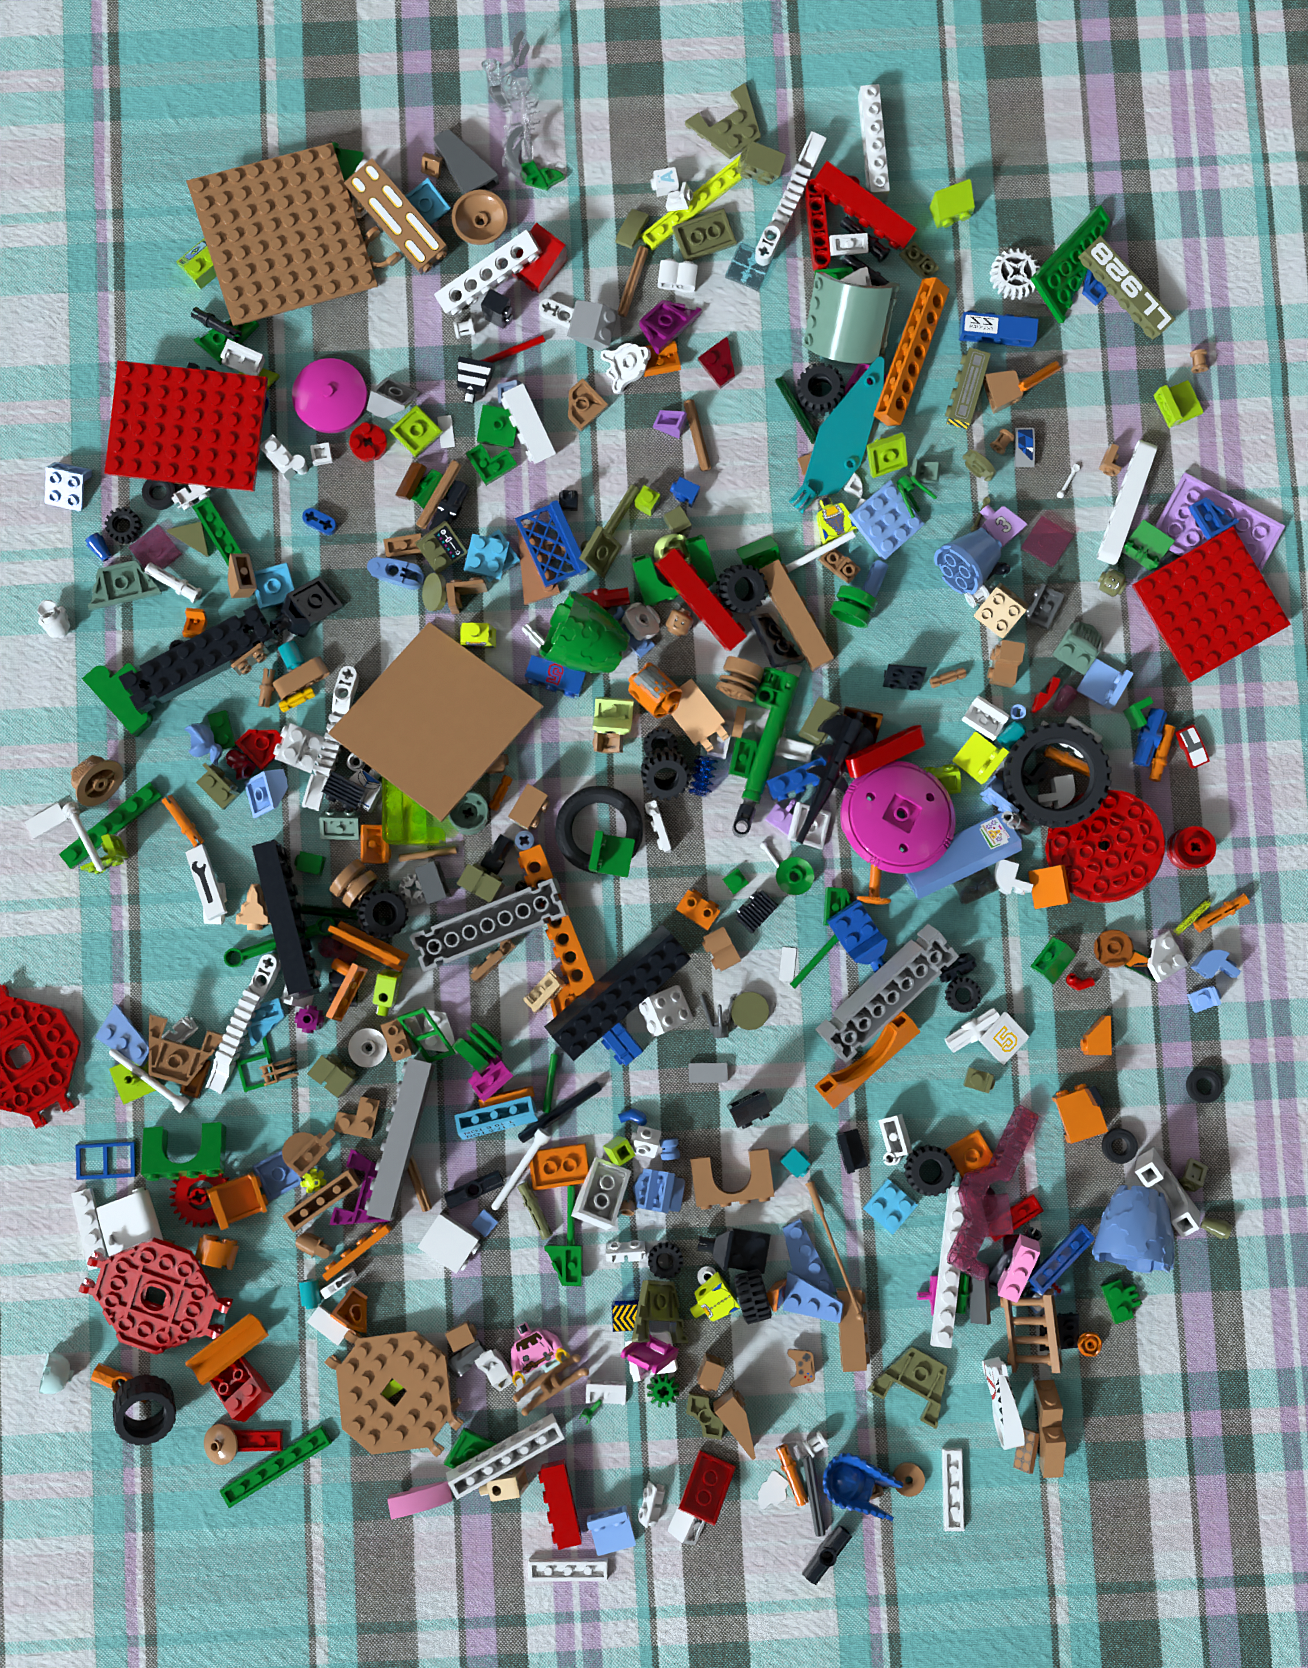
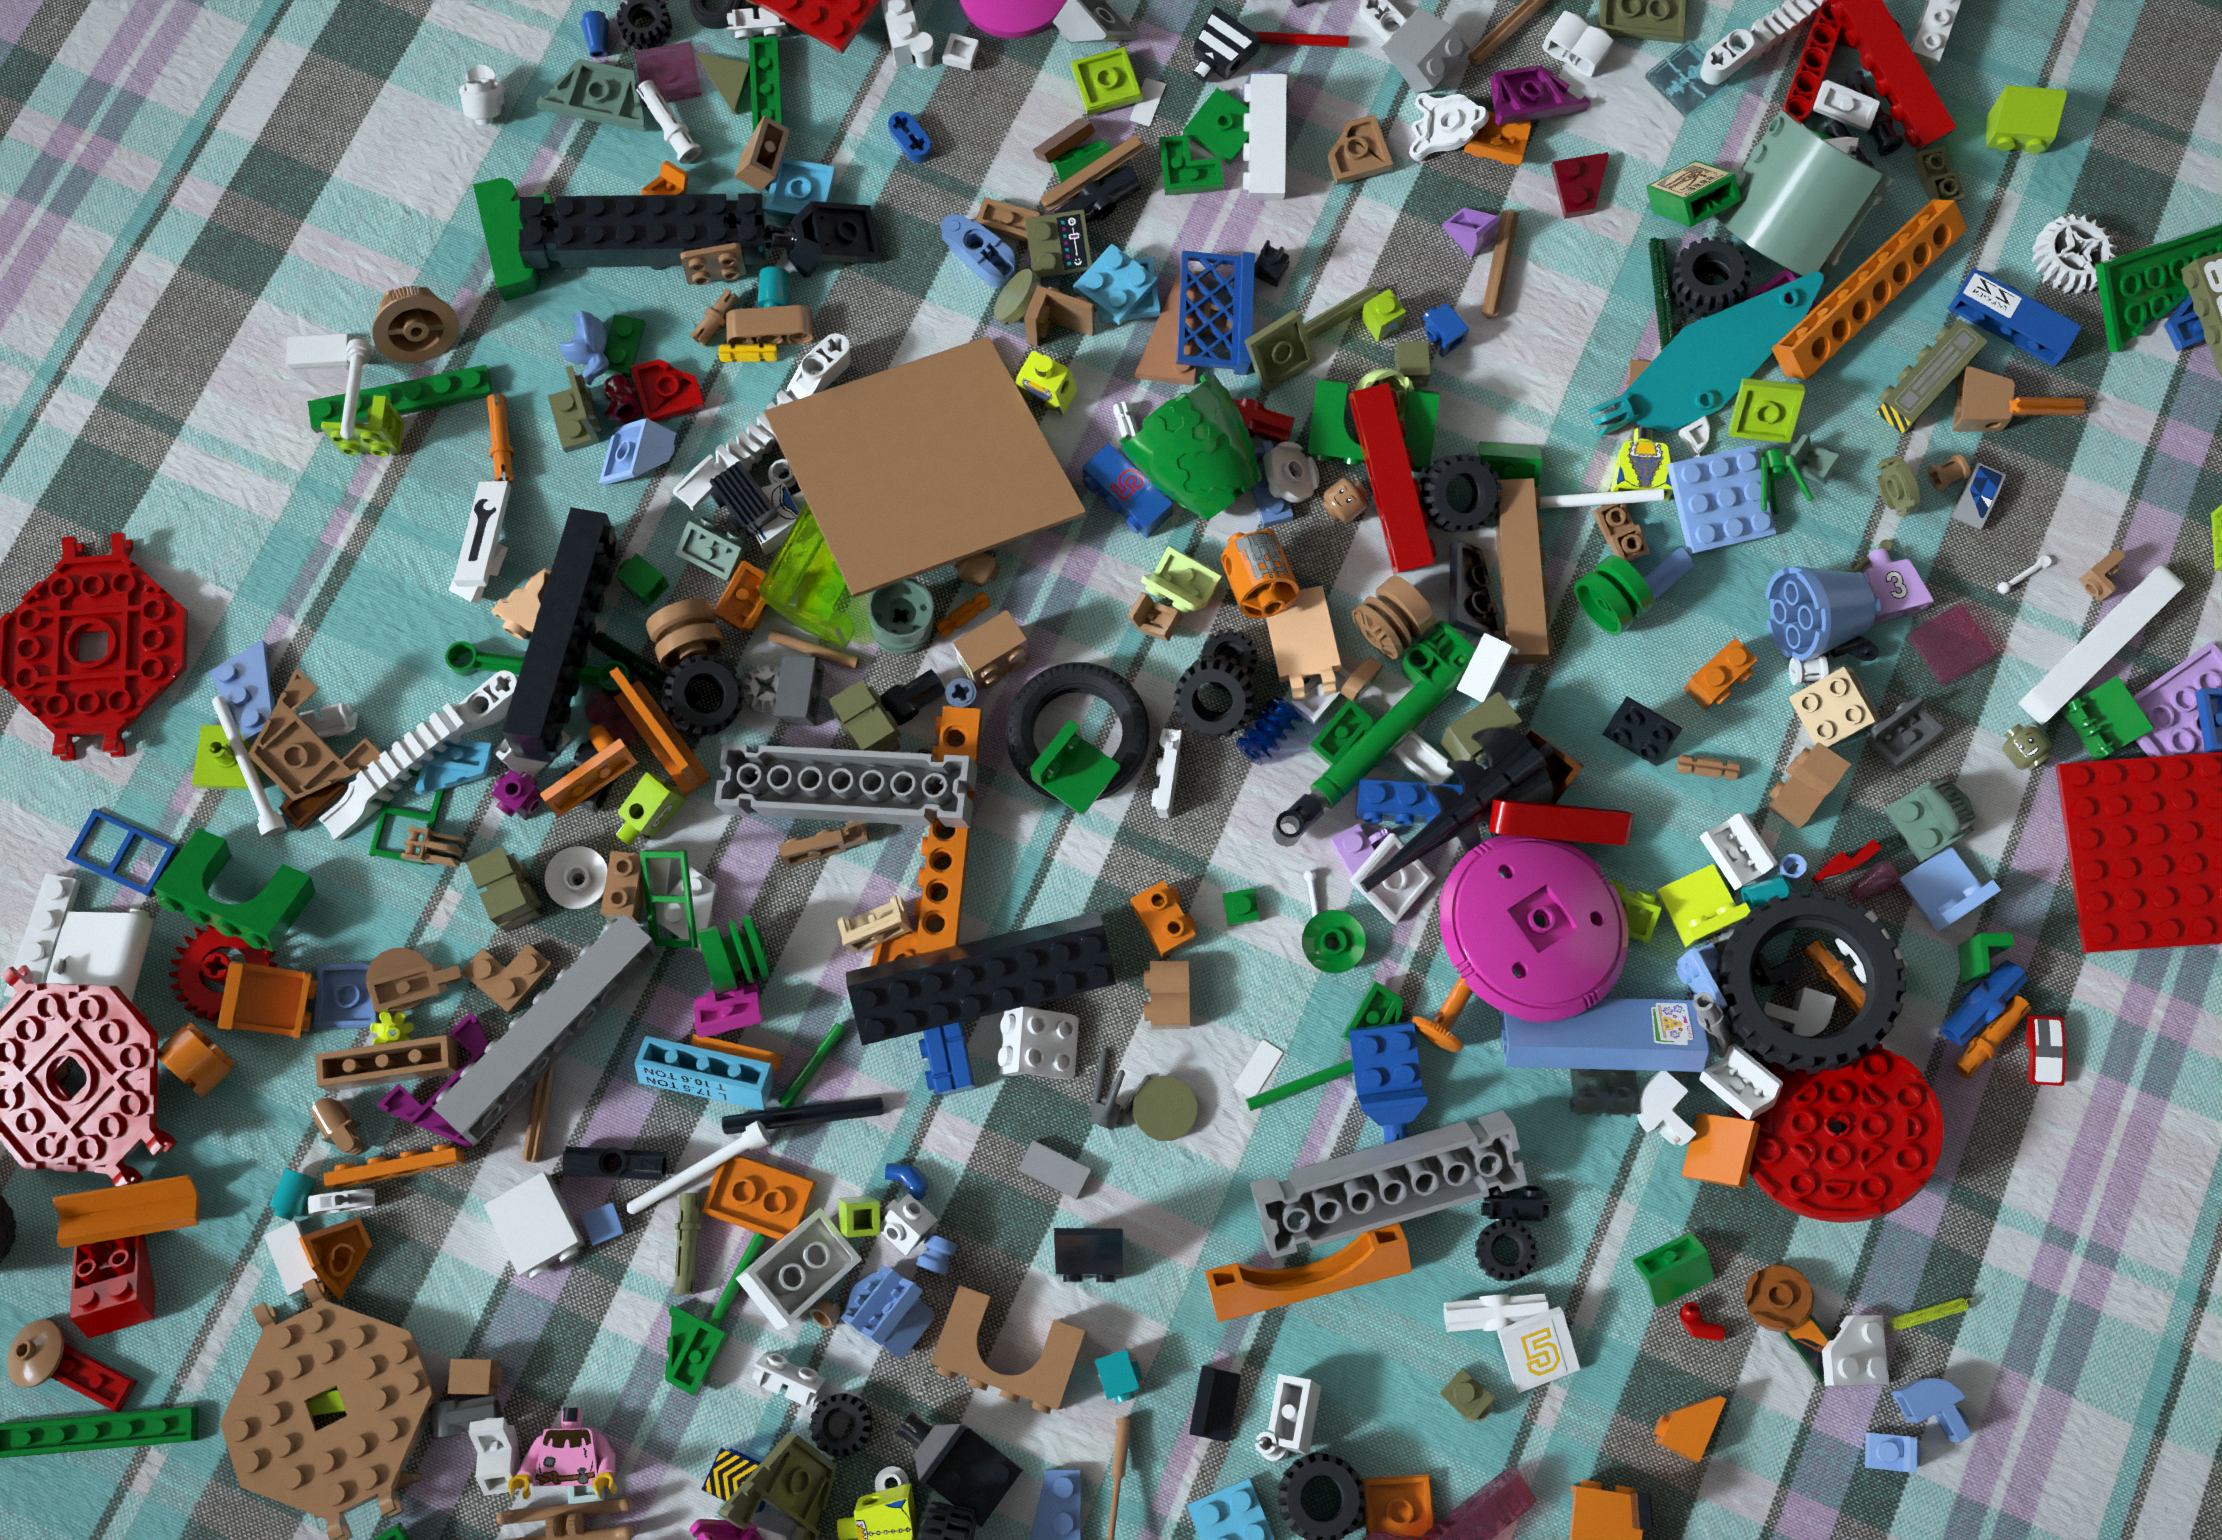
camera: 30 degrees right, 10 degrees down
(298, 747) = (712, 413): white plate -> none
(364, 432) = (1033, 51): red plate -> none
(756, 911) = (1249, 964): black brick -> none
(788, 342) = (1693, 193): none -> green brick
(804, 683) = (1485, 667): none -> white hinge
(931, 621) = (1720, 673): none -> orange brick
(1045, 845) = (1742, 1083): none -> white bracket
(1193, 837) = (1995, 1200): red wheel -> none
(1227, 909) = (2018, 1327): orange pin -> none

